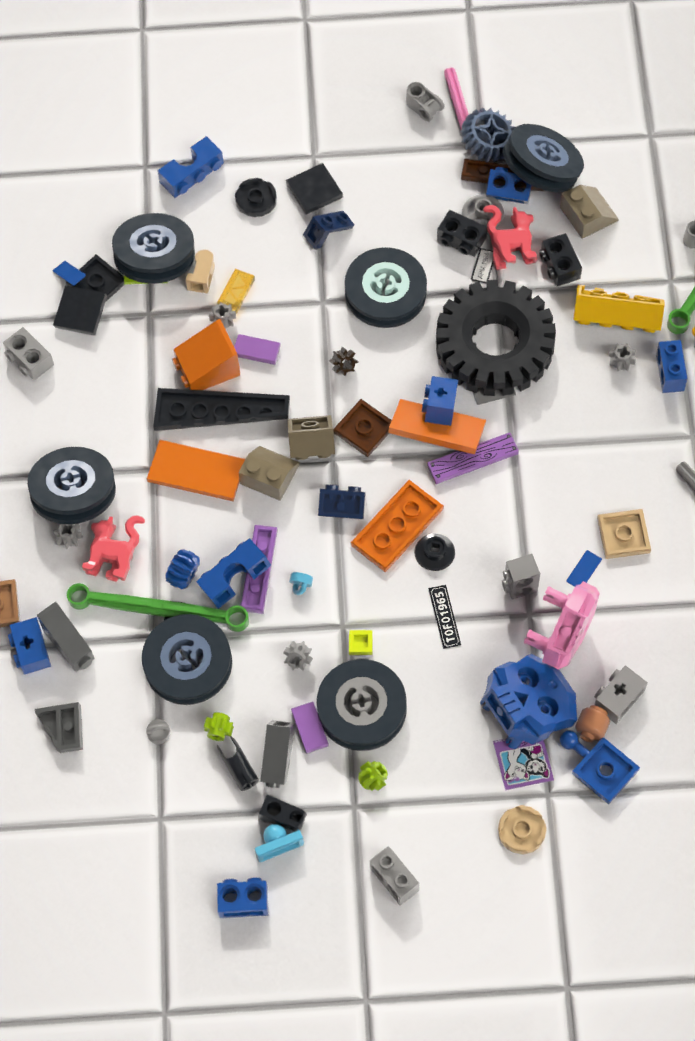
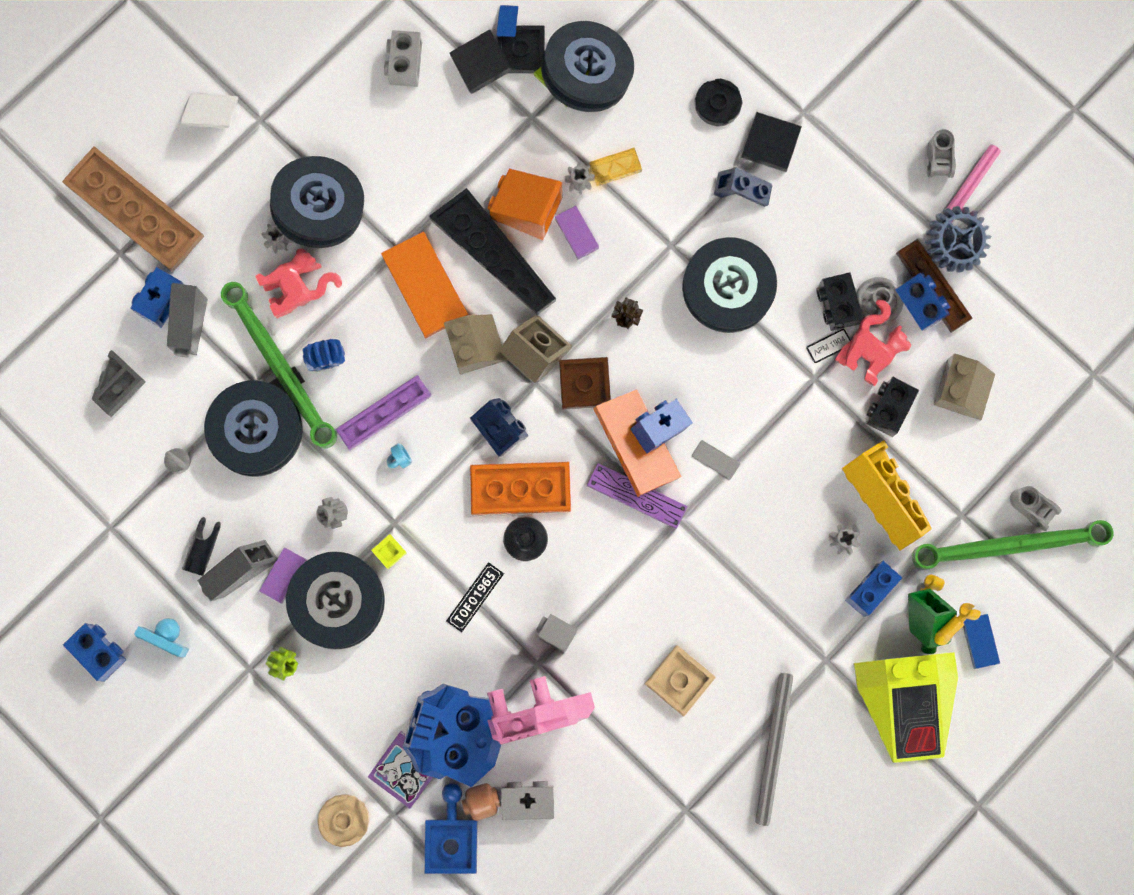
camera: 45 degrees right, 15 degrees up
(179, 178) = (676, 27): blue arch -> none
(203, 272) = (605, 125): tan leg -> none
(218, 726) = (217, 505): lime gear -> none
(244, 558) = (336, 393): blue arch -> none
(282, 813) = (189, 620): black leg -> none
(394, 875) = (213, 754): light grey brick -> none
(501, 306) = (791, 385): black tyre -> none
(543, 158) = (974, 307): black wheel -> none
(584, 568) = (618, 674): blue sticker -> none

